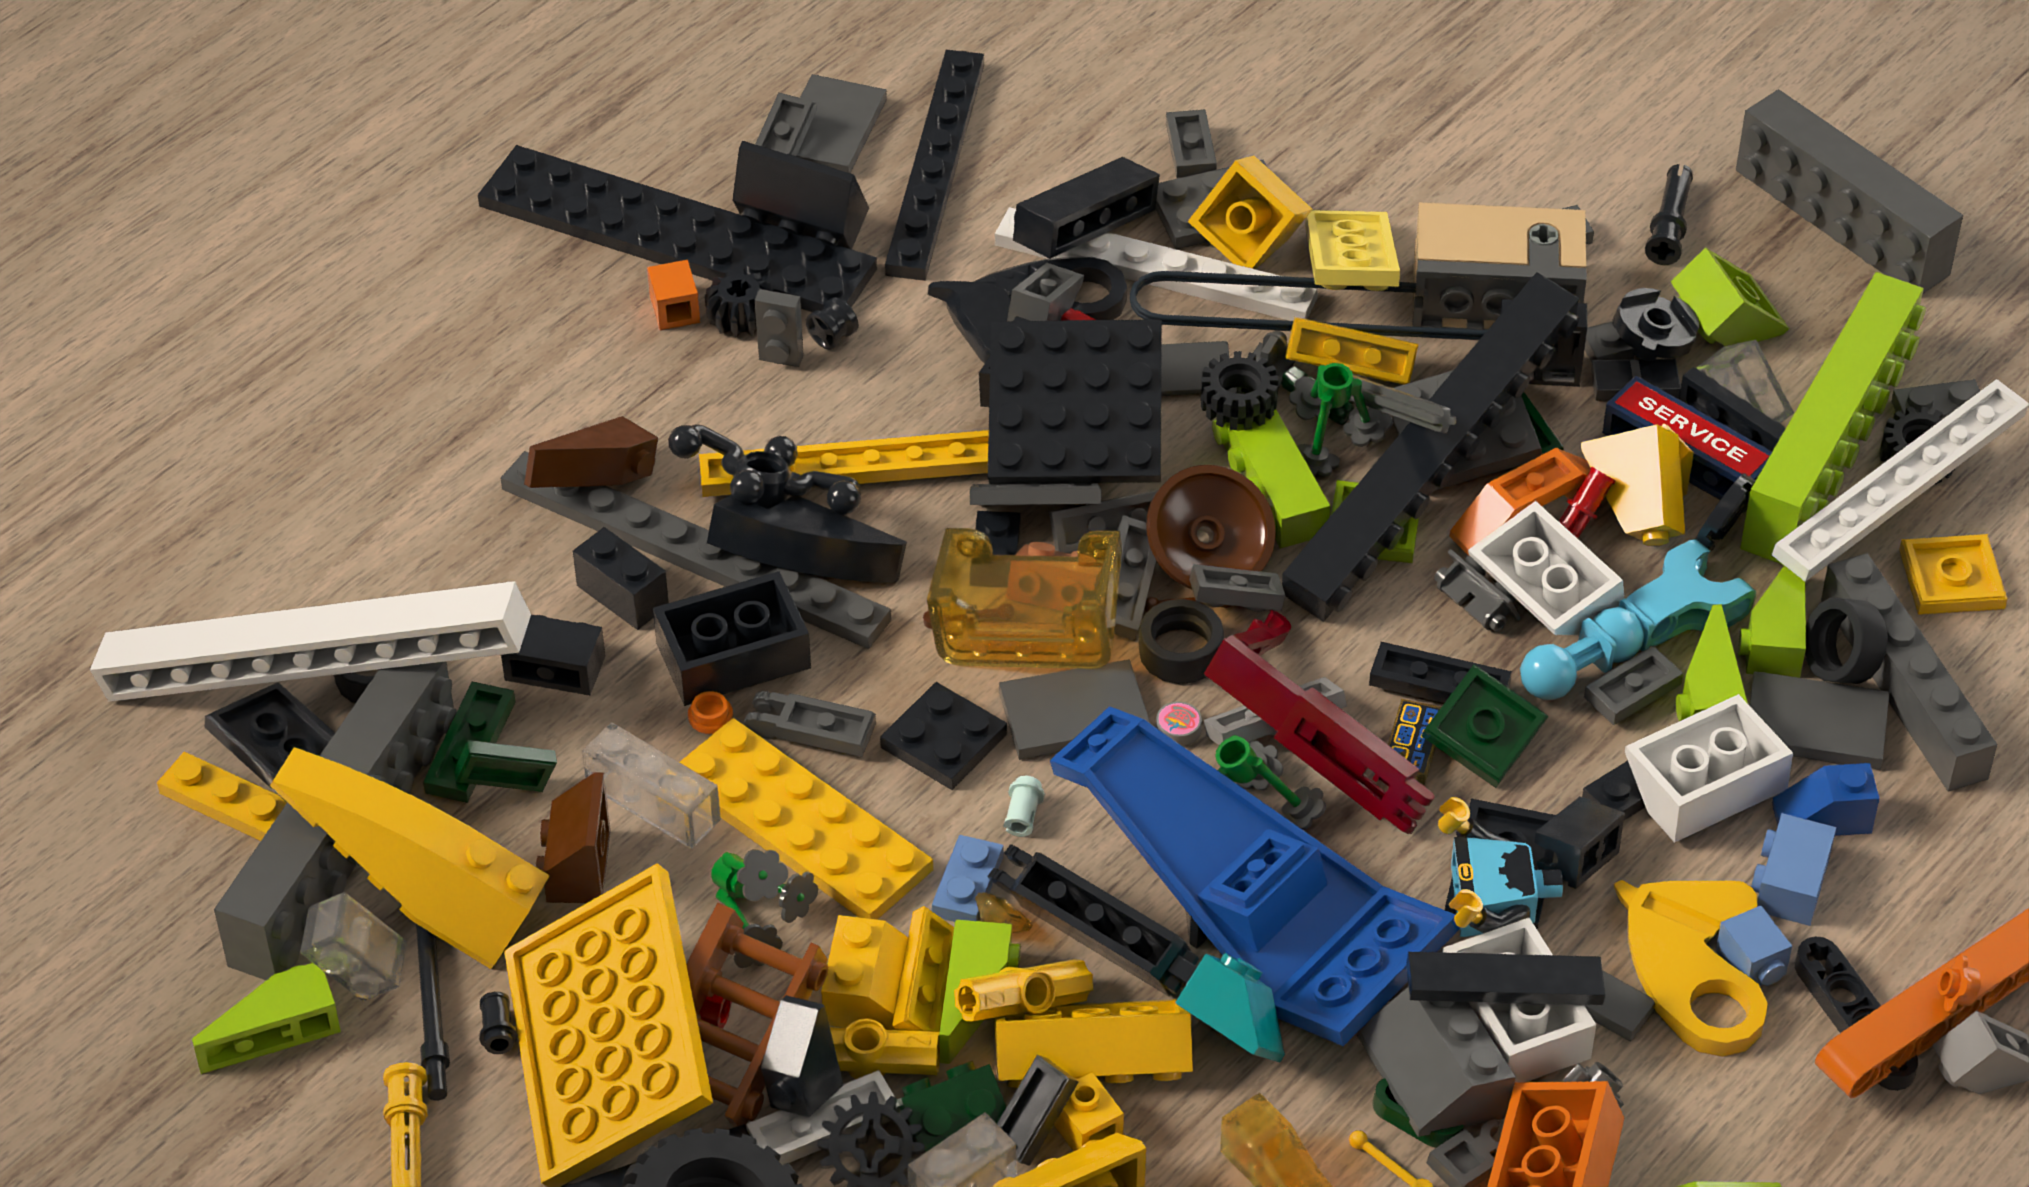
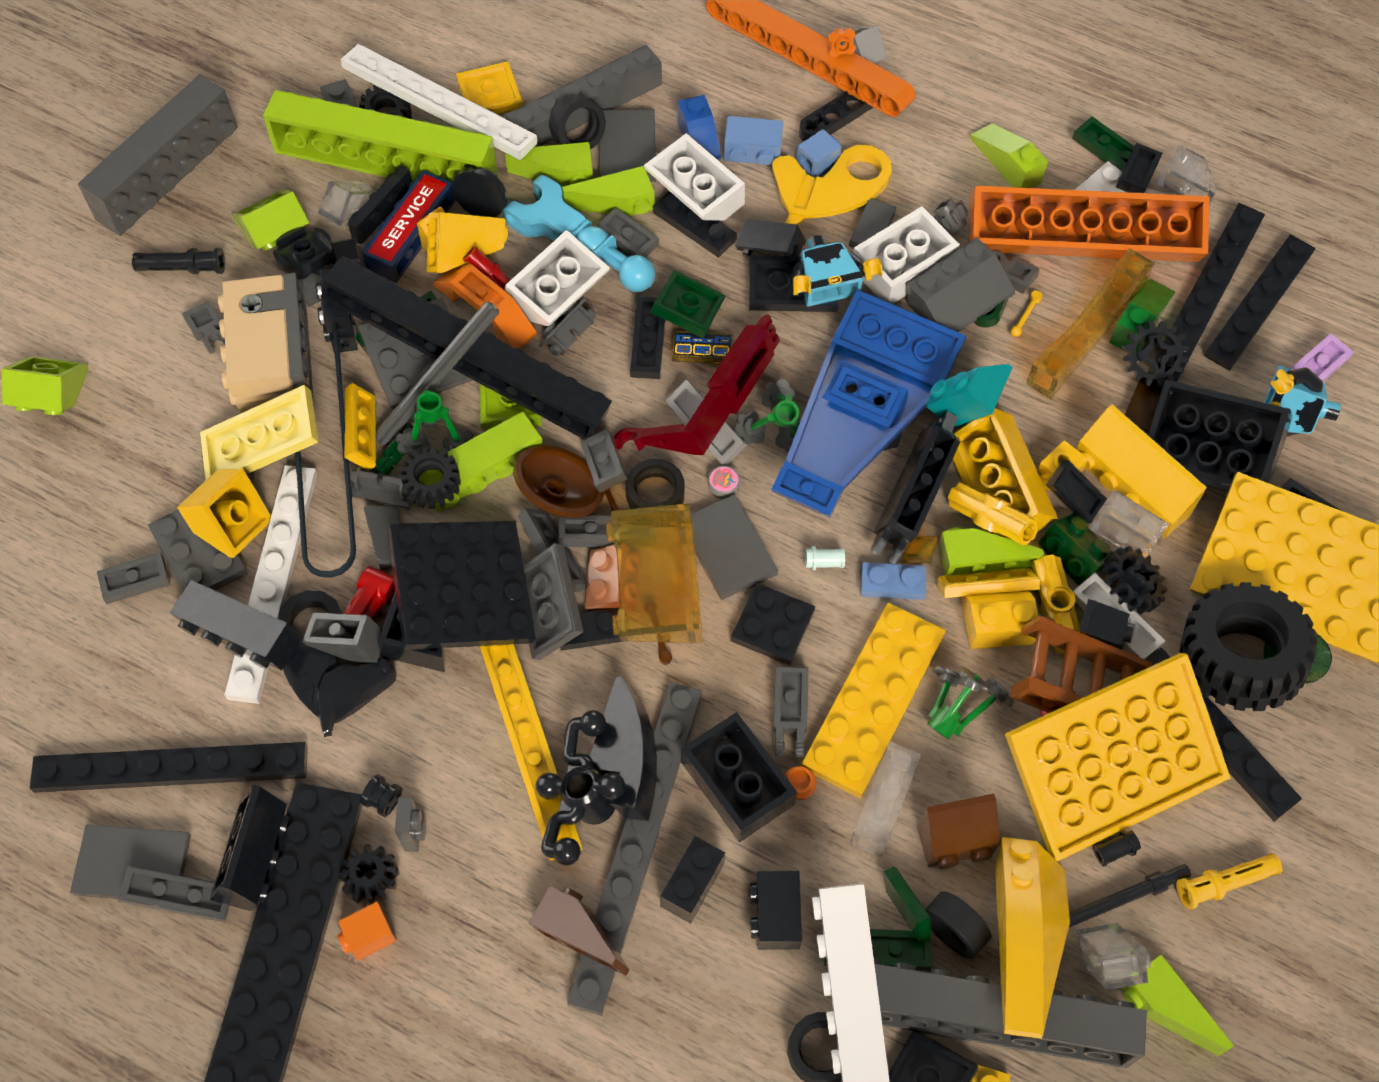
camera: 105 degrees left, 15 degrees up
(460, 782) = (958, 925): none -> black tyre
(1495, 79) = (42, 384): none -> lime slope
(1505, 978) = (912, 248): black tile -> none

